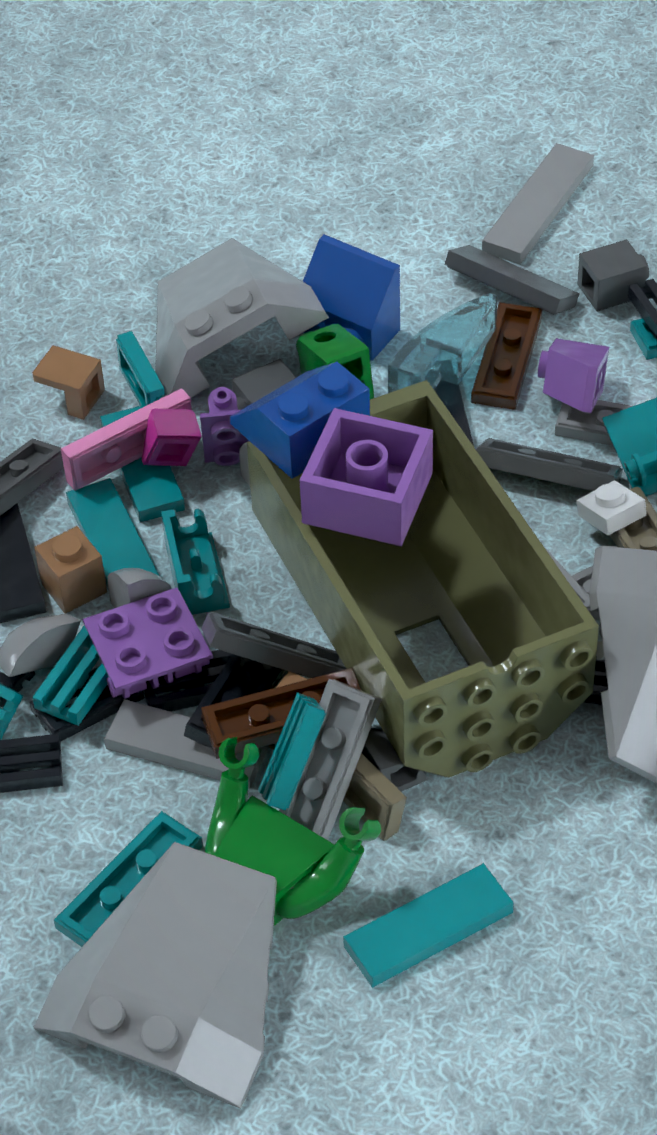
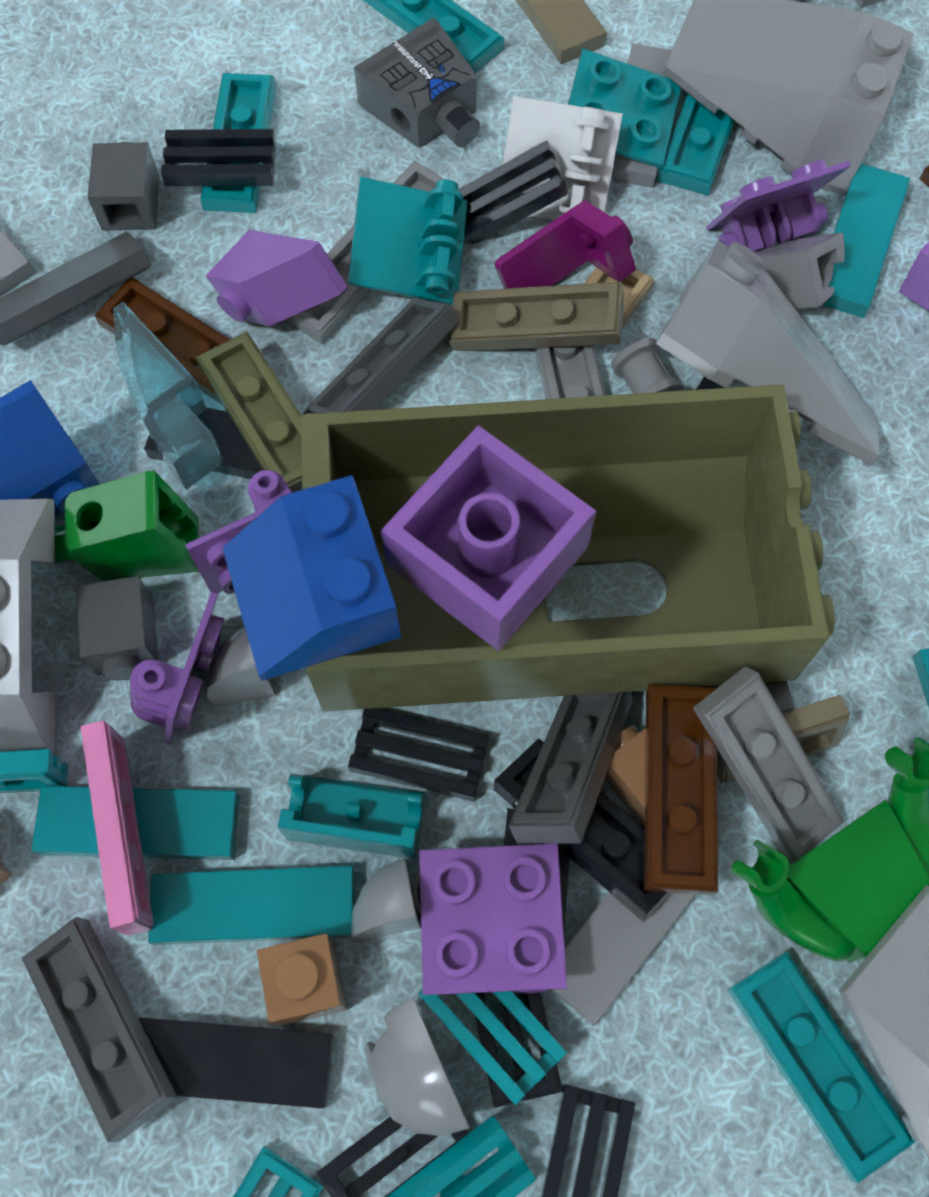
camera: 70 degrees left, 20 degrees up
(170, 437) = (145, 769): dark pink slope -> none
(253, 560) = (426, 729): none -> black tile
(292, 751) = (747, 800): teal tile -> none
(484, 397) = (257, 405): none -> olive tile
(611, 507) = (490, 326): white plate -> none

